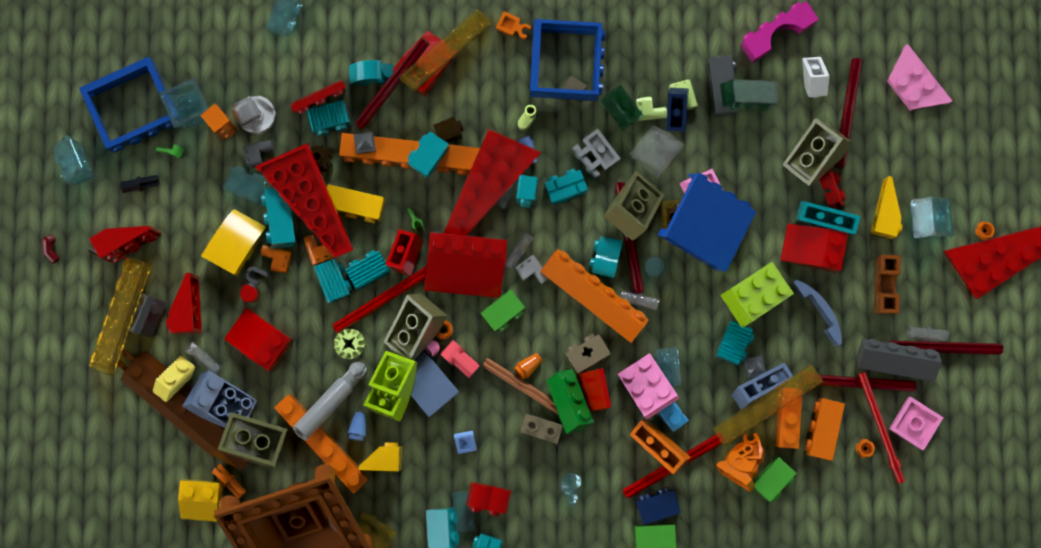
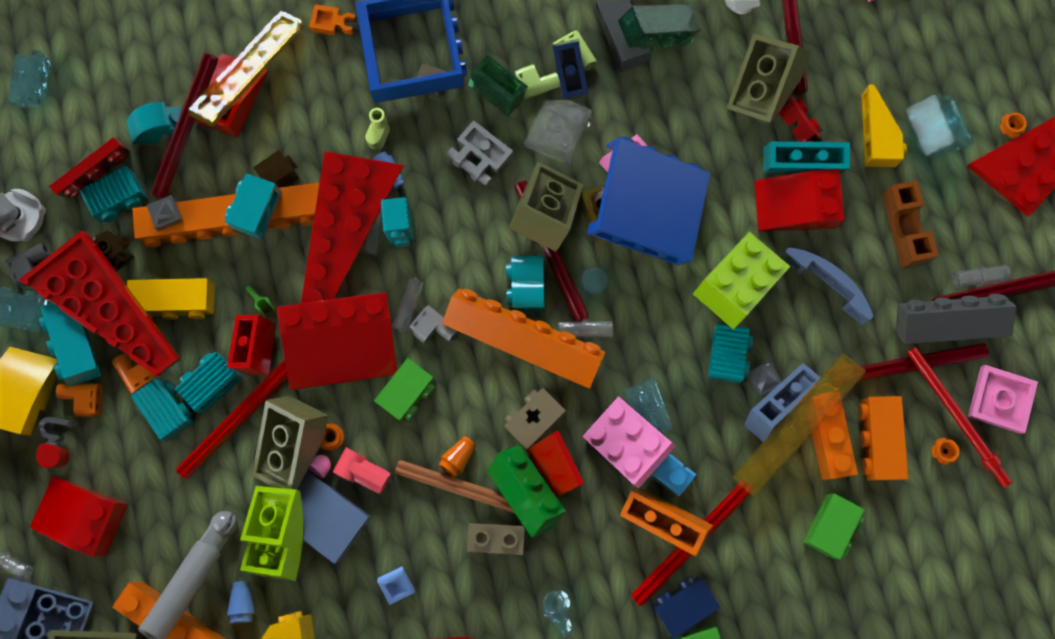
camera: 10 degrees left, 5 degrees down
(358, 343) = (217, 486): yellowish green gear -> none
(565, 187) = (450, 205): teal brick -> none
(743, 462) = (786, 514): orange piece -> none

